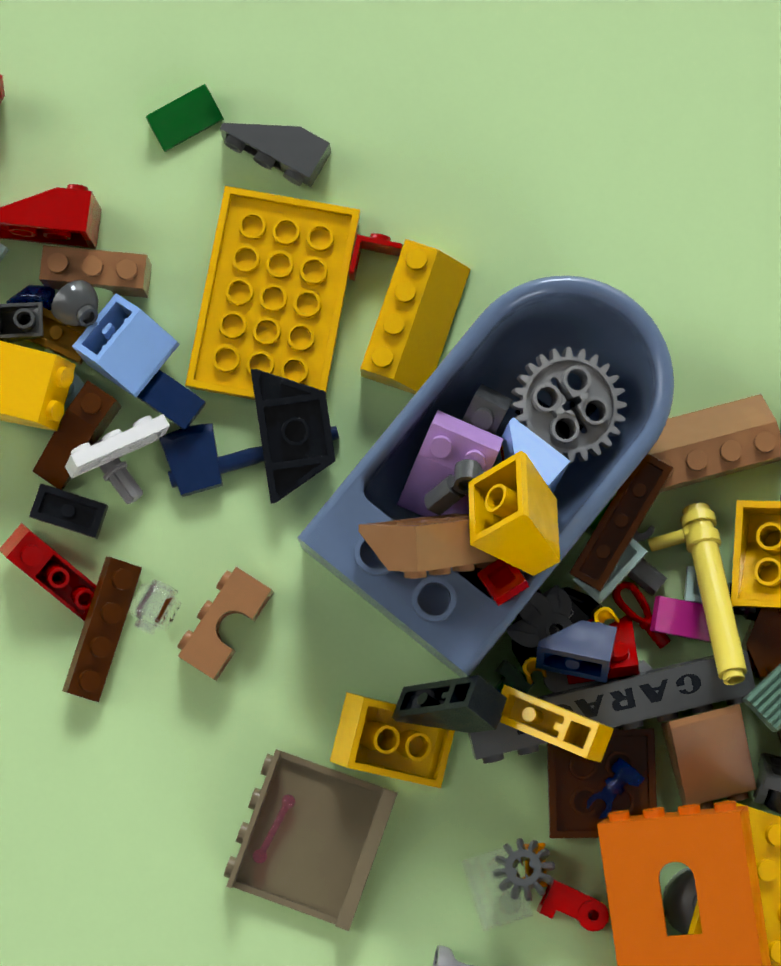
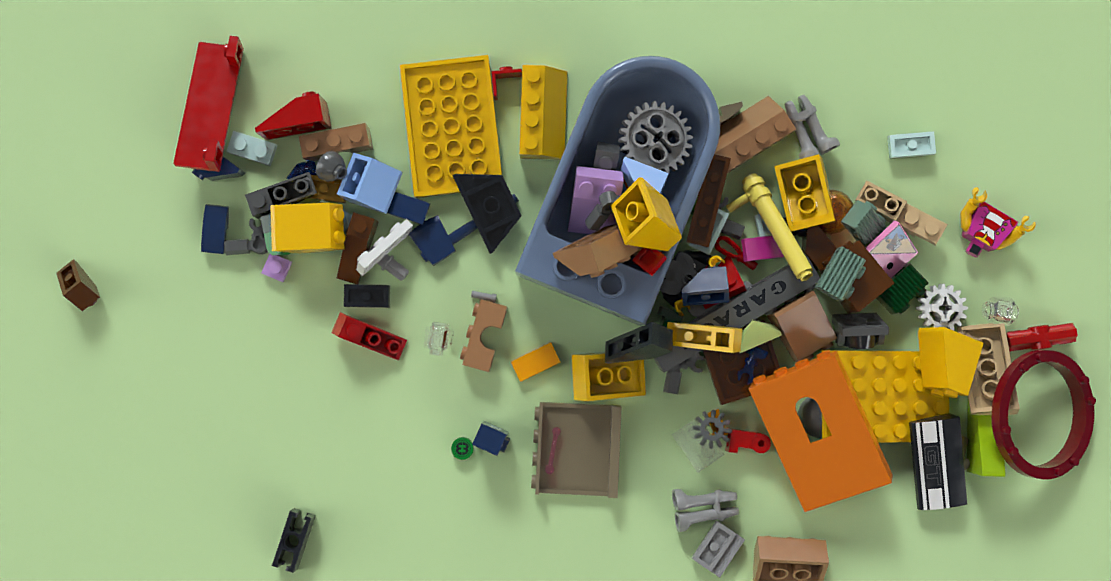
camera: 20 degrees left, 5 degrees up
(102, 629) = (410, 361): reddish brown plate -> none
(139, 783) = (462, 448): none -> green tile
(184, 117) = (360, 29): green slope -> none
(186, 781) = (491, 438): none -> dark blue brick
(253, 570) = (490, 297): none -> light grey piece
(283, 147) = (429, 29): dark grey slope -> none
(289, 686) = (535, 362): none -> light orange tile
(491, 774) = (673, 379): none -> dark grey bar
(635, 744) = (757, 334): none -> yellowish green slope
(692, 400) = (728, 111): none -> dark tan slope

